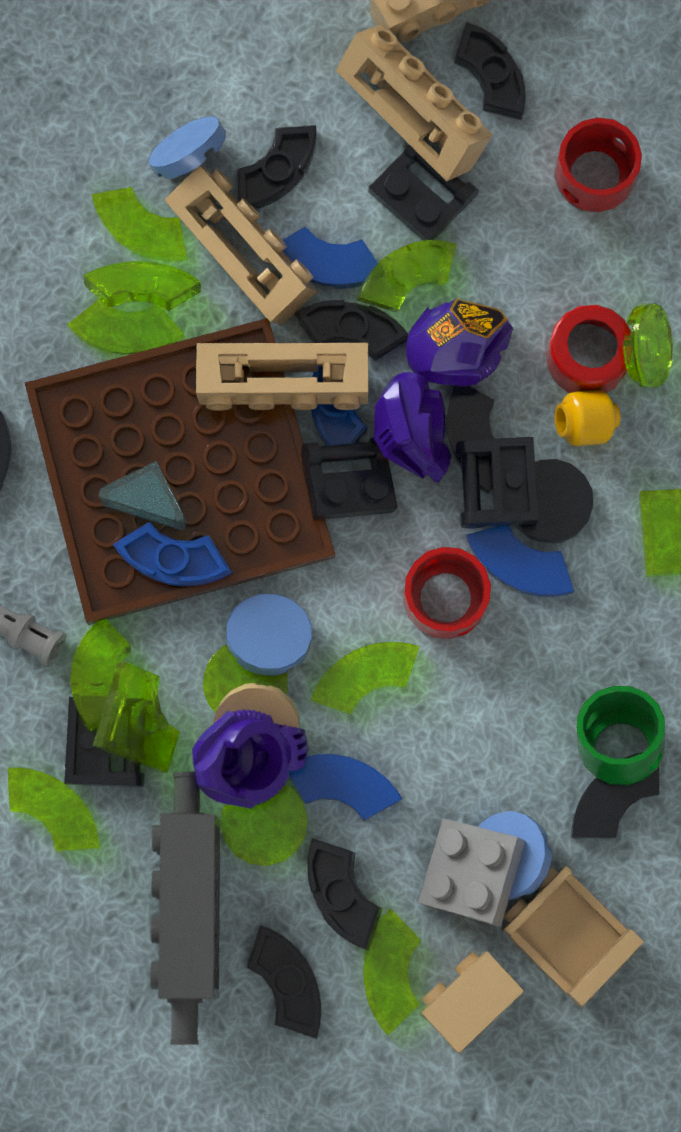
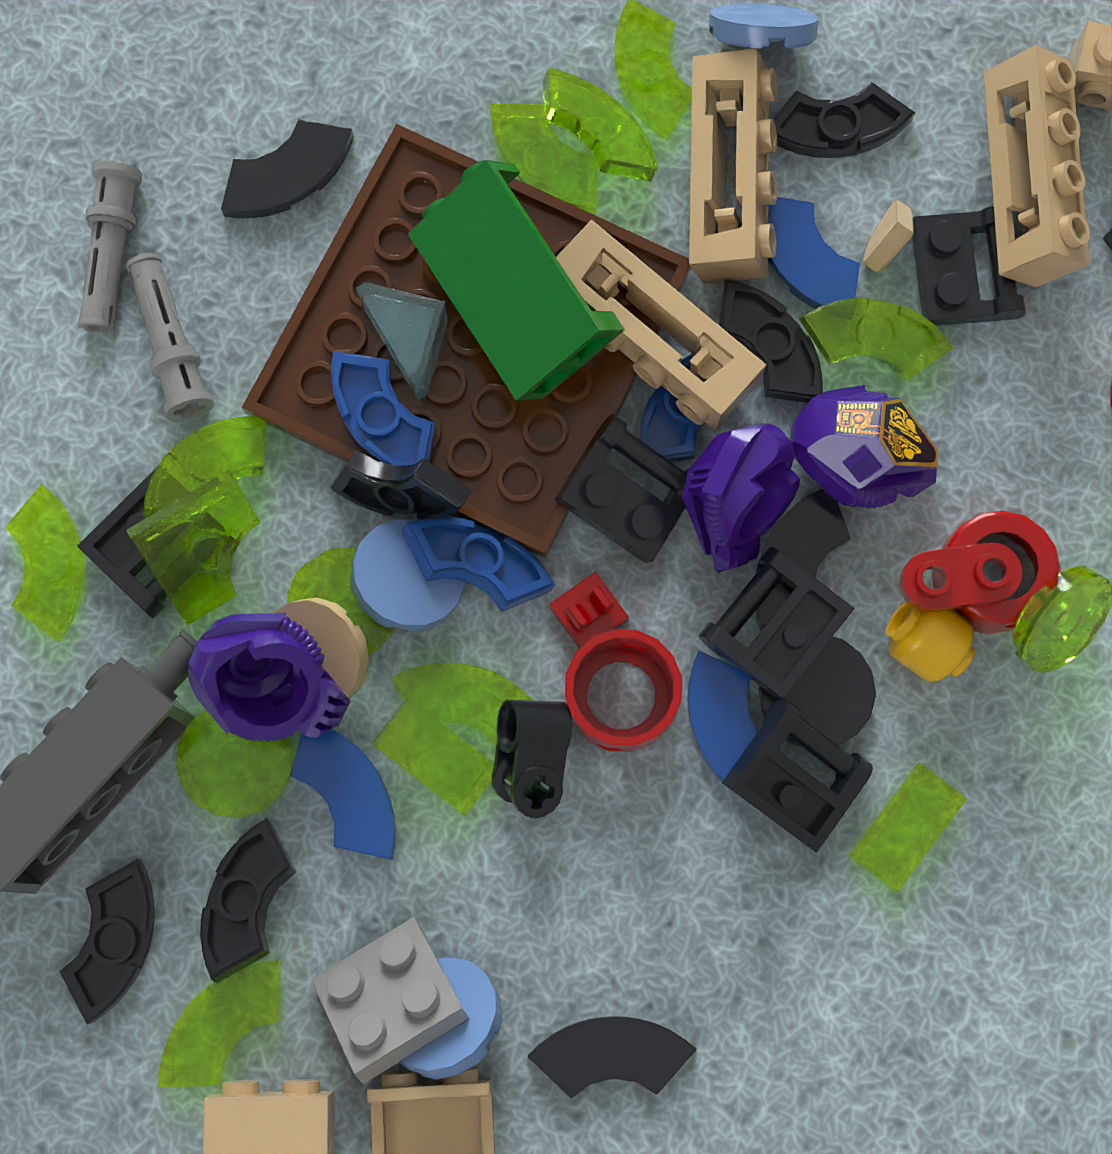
camera: 40 degrees right, 0 degrees up
(182, 418) = (509, 283): none -> green panel
(223, 588) = (401, 488): none -> black tile
(298, 589) = (478, 556): none -> blue tile
(364, 209) = (889, 236): none -> tan tile
(375, 720) = (435, 755): none -> clear neon green tile
(386, 567) = (588, 610): none -> red tile
(425, 669) = (531, 751): none -> black piece
(575, 368) = (962, 577): none -> red plate
(582, 569) = (788, 791): none -> black plate
(621, 706) = (686, 960): green piece -> none

